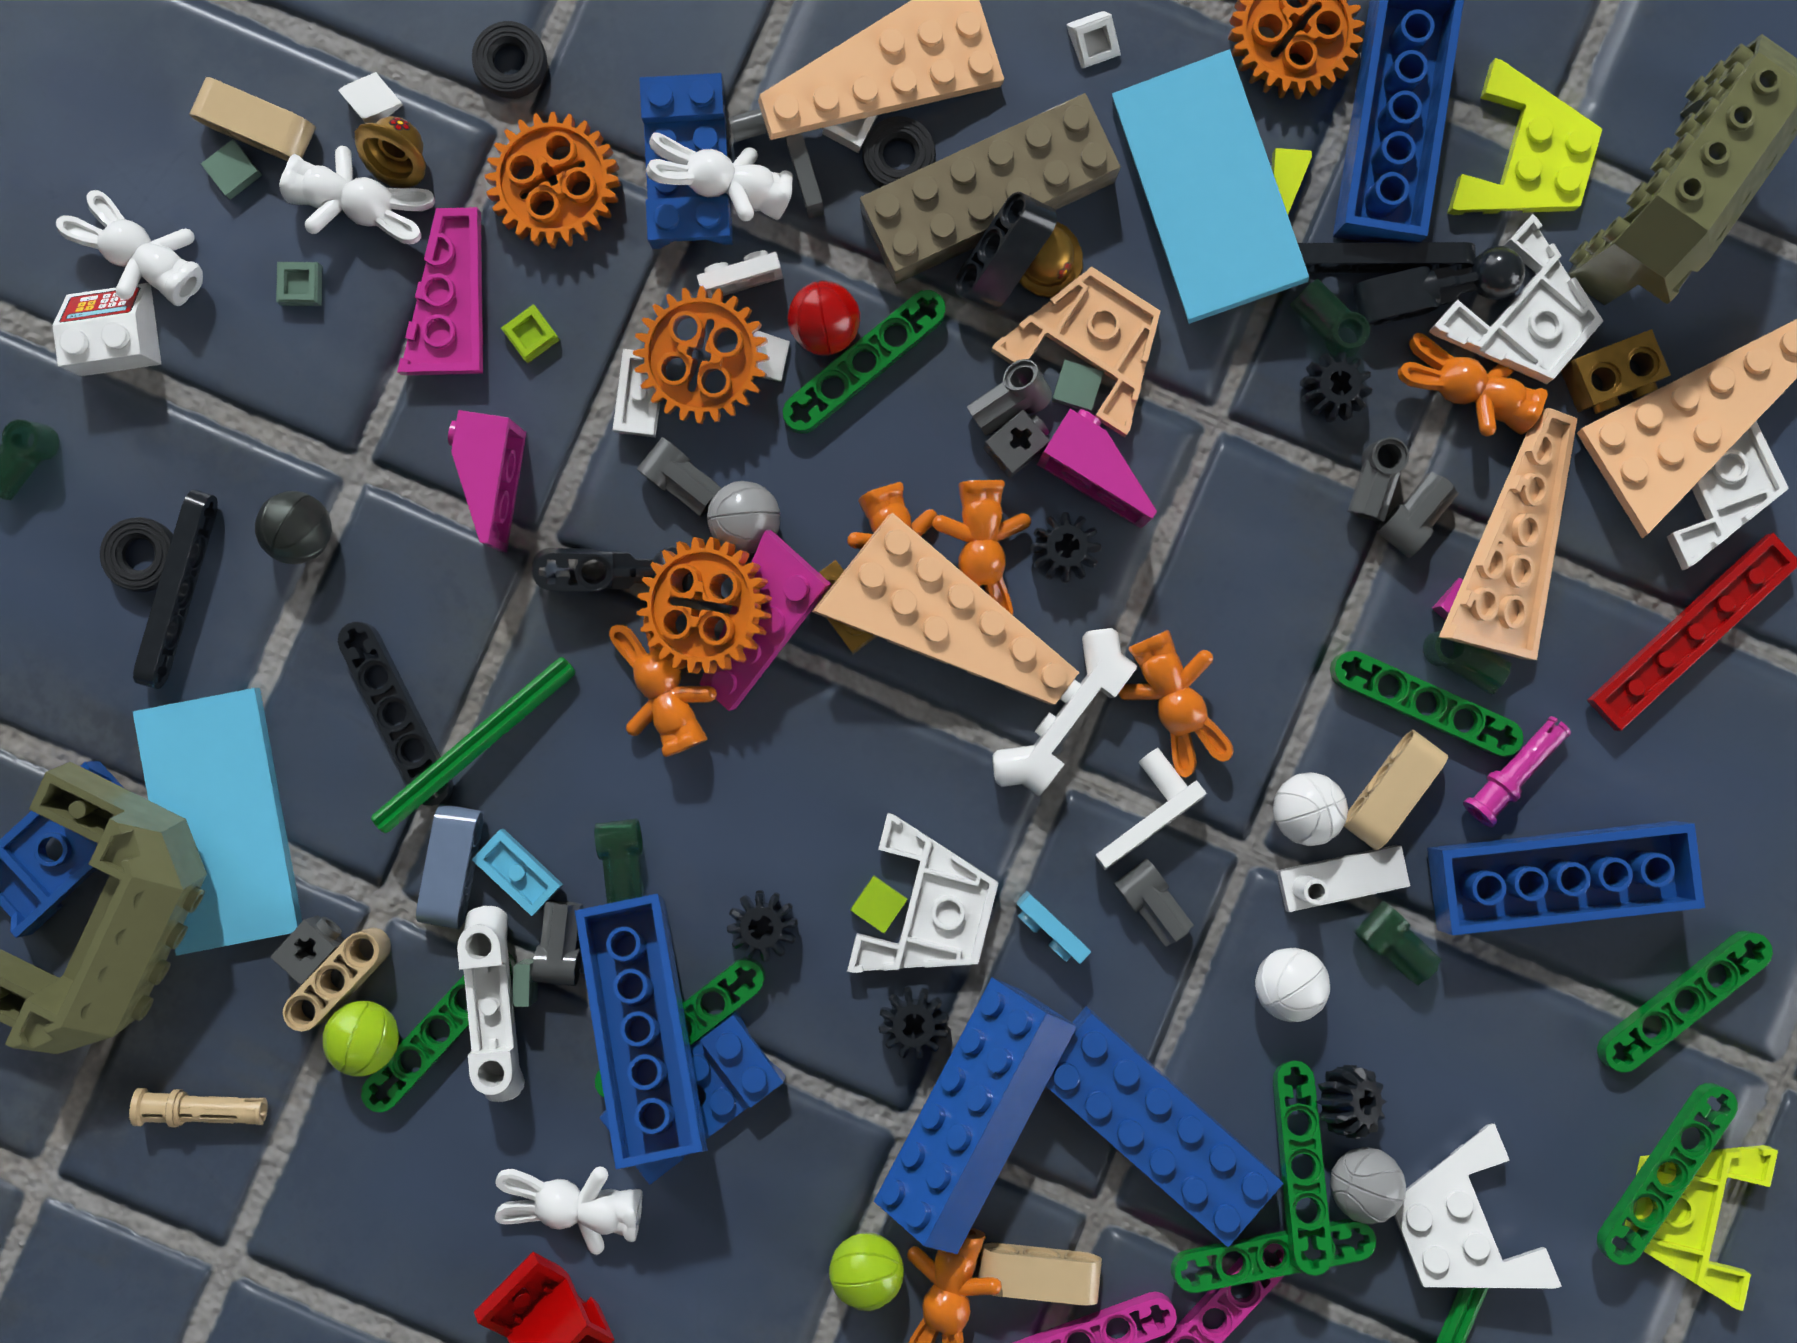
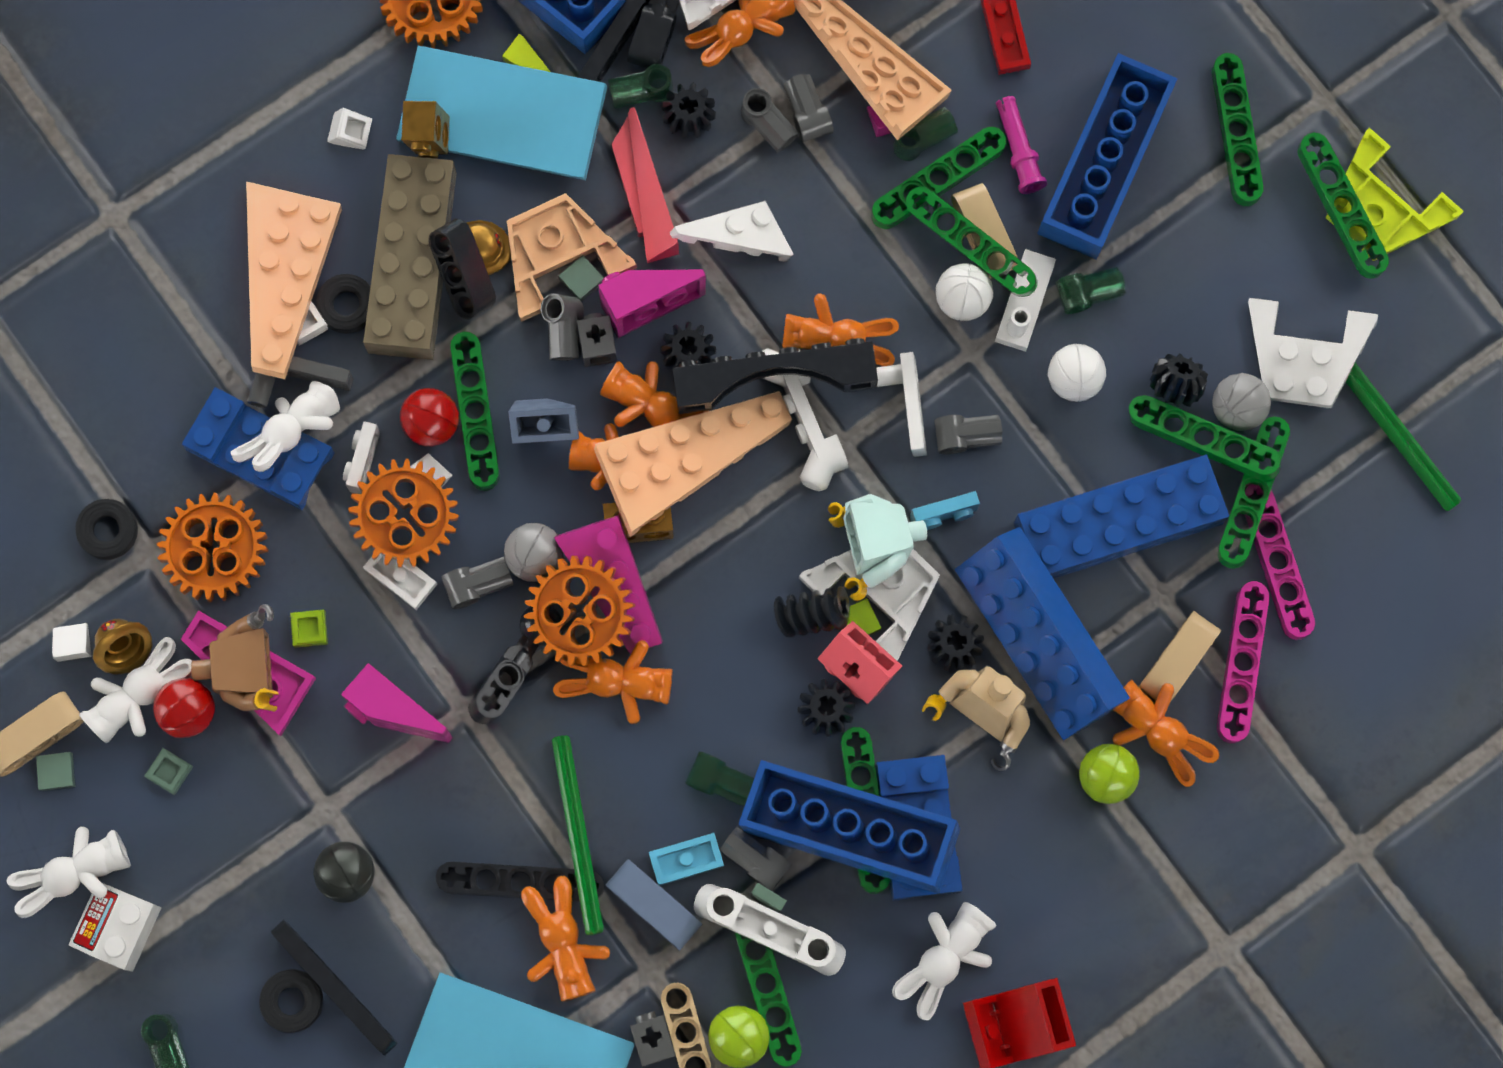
camera: 65 degrees left, 10 degrees down
(359, 790) = (560, 937): none -> orange animal
(363, 256) = (184, 708): none -> red piece
(438, 287) = (241, 663): none -> medium nougat torso
(829, 934) = (859, 662): none -> coral brick
(850, 853) = (814, 614): none -> black piece
(867, 1098) = (989, 702): none -> tan torso
(889, 439) = (542, 421): none -> sand blue slope
(974, 876) = (877, 538): none -> light aqua torso
(1136, 113) = (425, 128): none -> pearl gold brick
(1141, 730) = (843, 366): none -> black arch
(1215, 392) = (643, 190): none -> coral wedge
(1237, 529) = (741, 229): none -> white wing
(1379, 765) = (964, 227): none -> green beam

